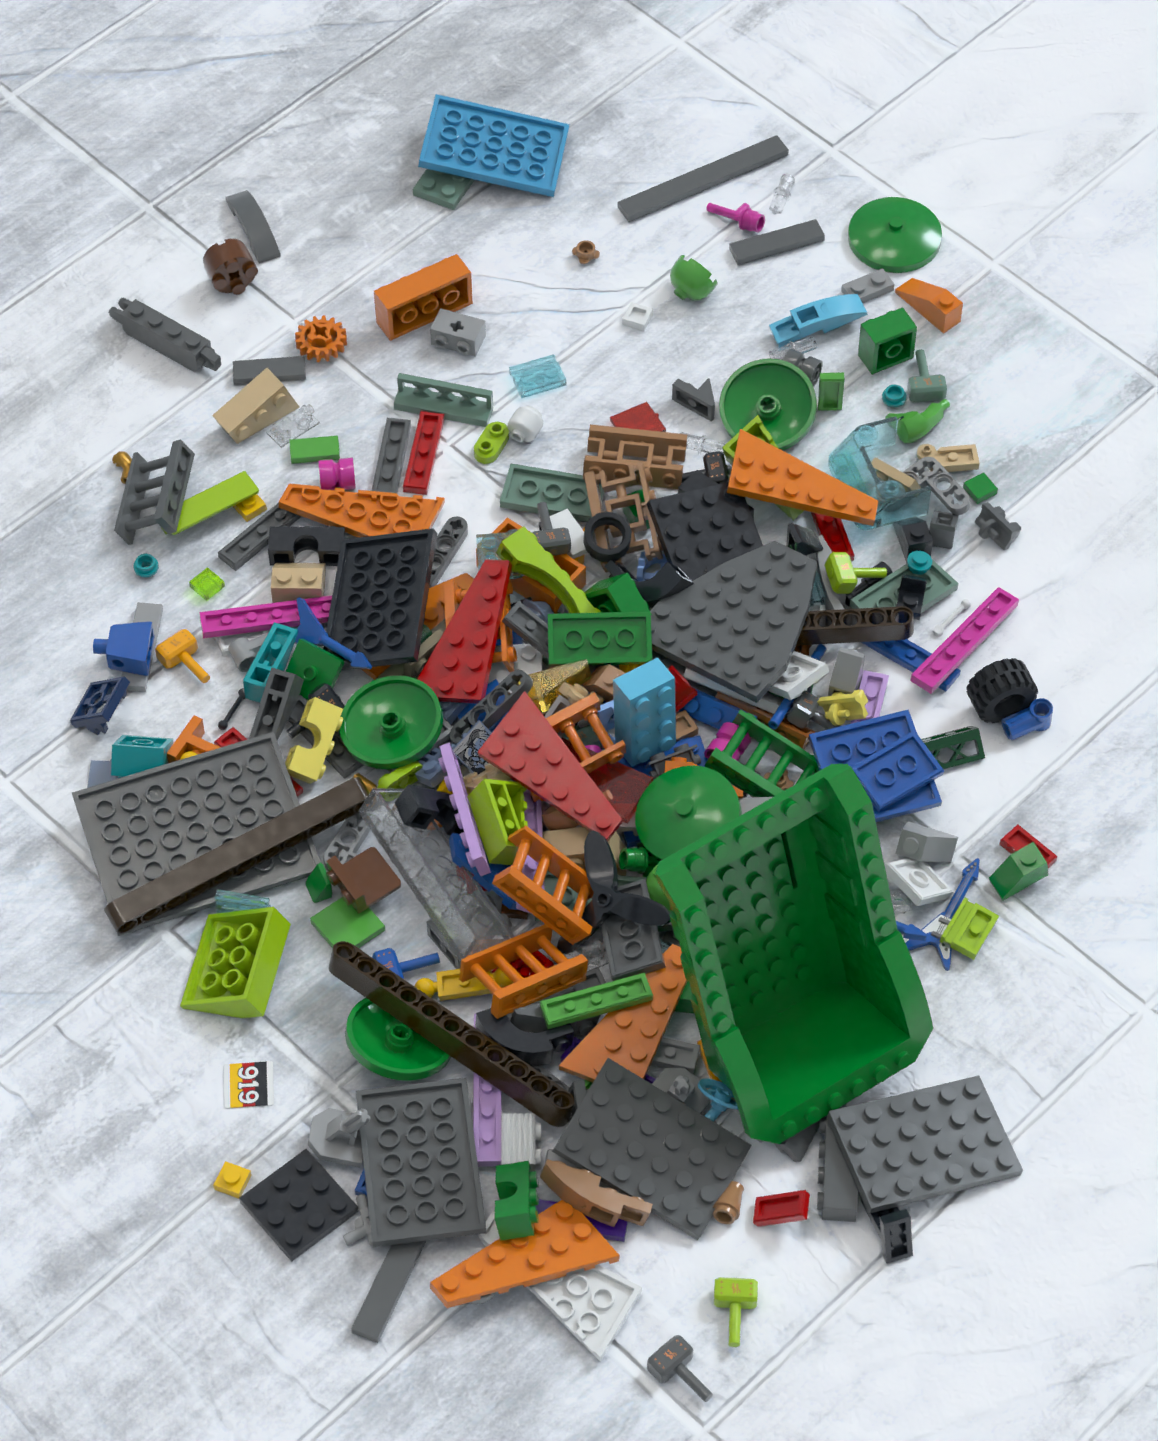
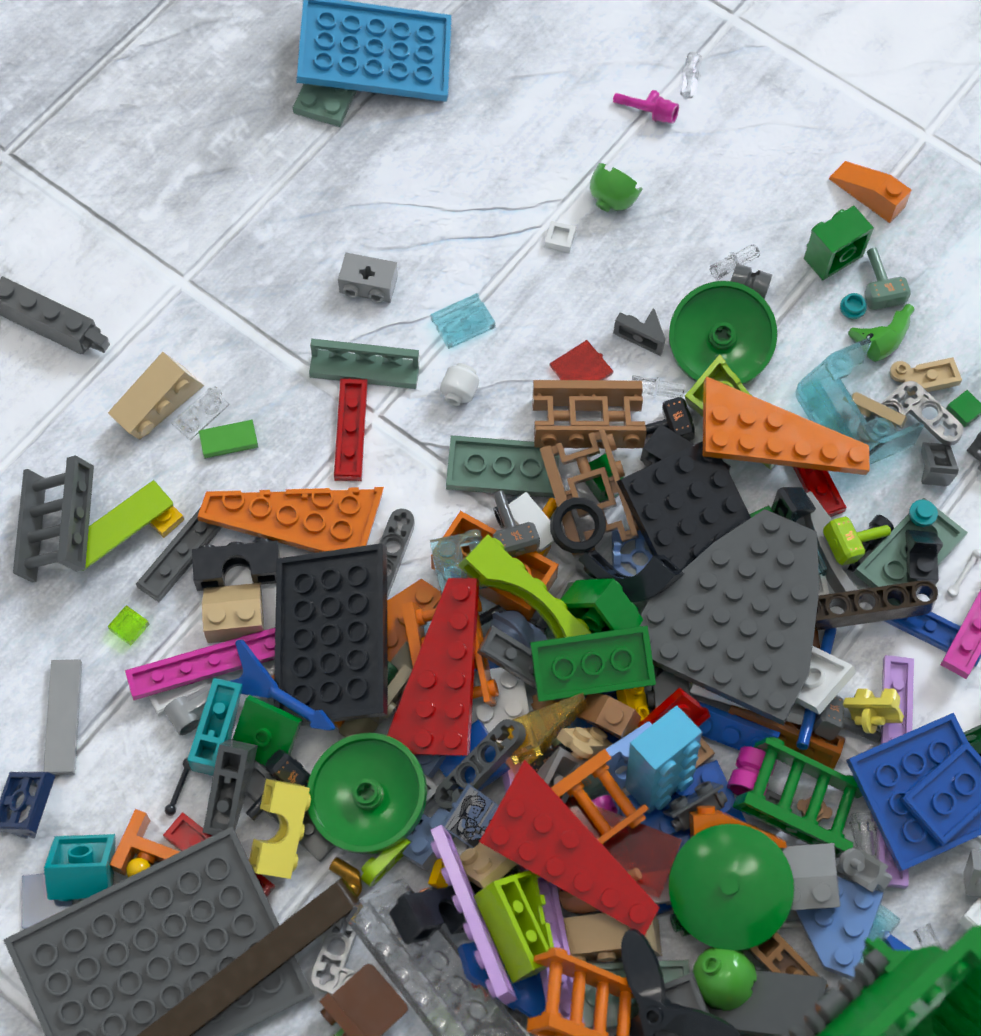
camera: 10 degrees left, 10 degrees up
(122, 460) = (13, 476): pearl gold arm -> none
(128, 647) = (47, 726): blue torso -> none
(145, 560) = (52, 603): teal plate -> none
(179, 649) = (105, 717): light orange piece -> none
(229, 266) = (104, 224): reddish brown brick -> none
(255, 226) = (124, 168): dark grey slope -> none
(283, 368) = (172, 342): dark grey tile -> none
(319, 884) = (309, 1015): green slope -> none
(321, 338) = (217, 300): orange gear -> none
(337, 474) = (258, 471): dark pink wheel -> none
(392, 455) = (315, 439): dark grey tile -> none
(419, 296) = (323, 239): orange brick -> none
(494, 438) = (424, 406): lime plate -> none
(585, 251) = (492, 158): medium nougat plate -> none
(637, 861) = (676, 943): green piece -> none
(702, 178) = (602, 65): dark grey tile -> none
(776, 242) = (694, 132): dark grey tile -> none
(816, 316) = (756, 220): medium azure slope -> none
(830, 391) = (789, 310): bright green tile -> none
(847, 672) = (871, 667): light grey slope -> none
(869, 286) = (800, 177): light grey plate -> none
(894, 234) = (817, 111): green dish -> none
(913, 536) = (907, 478): black slope -> none

